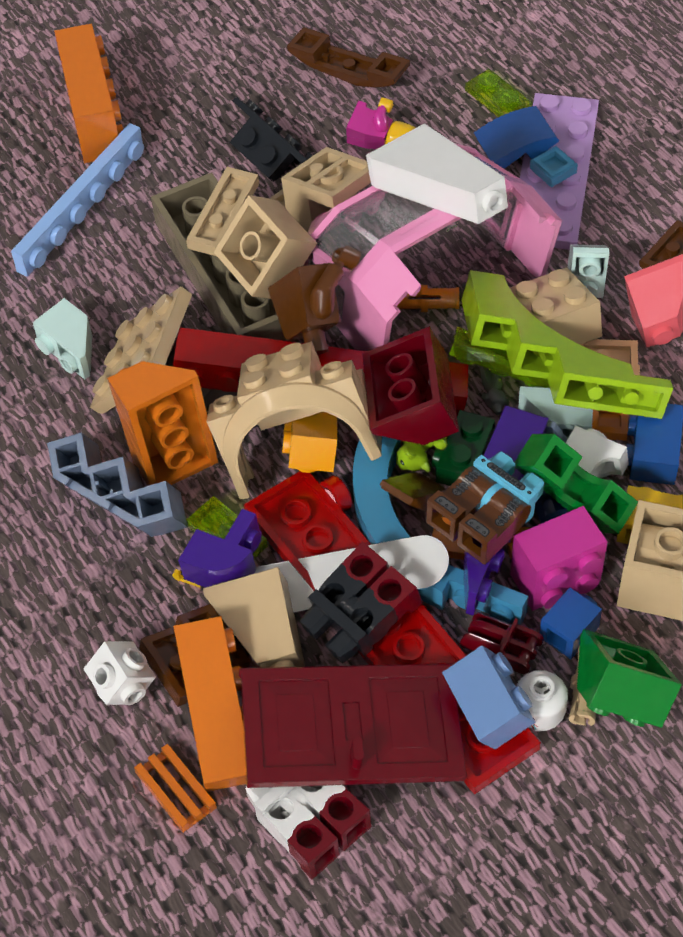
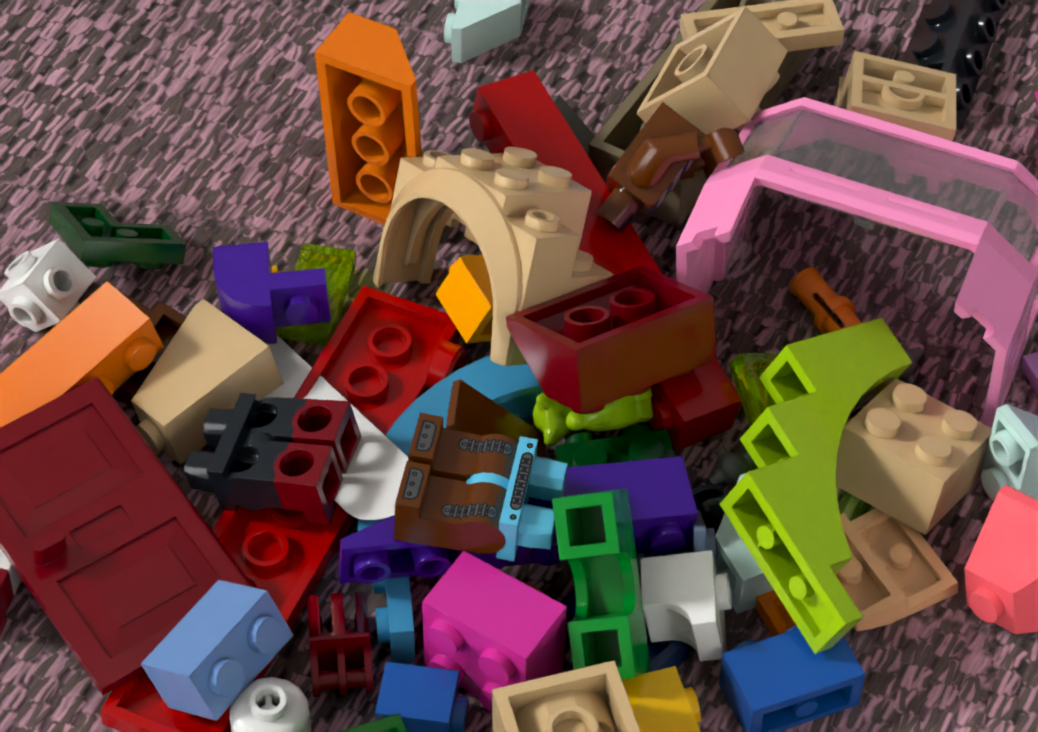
camera: 55 degrees right, 5 degrees down
(106, 623) = (102, 240): none -> dark green plate
(116, 486) = (292, 158): sand blue brick -> none
(144, 338) = (462, 73): tan plate -> none
(438, 175) = (917, 154): white slope -> none

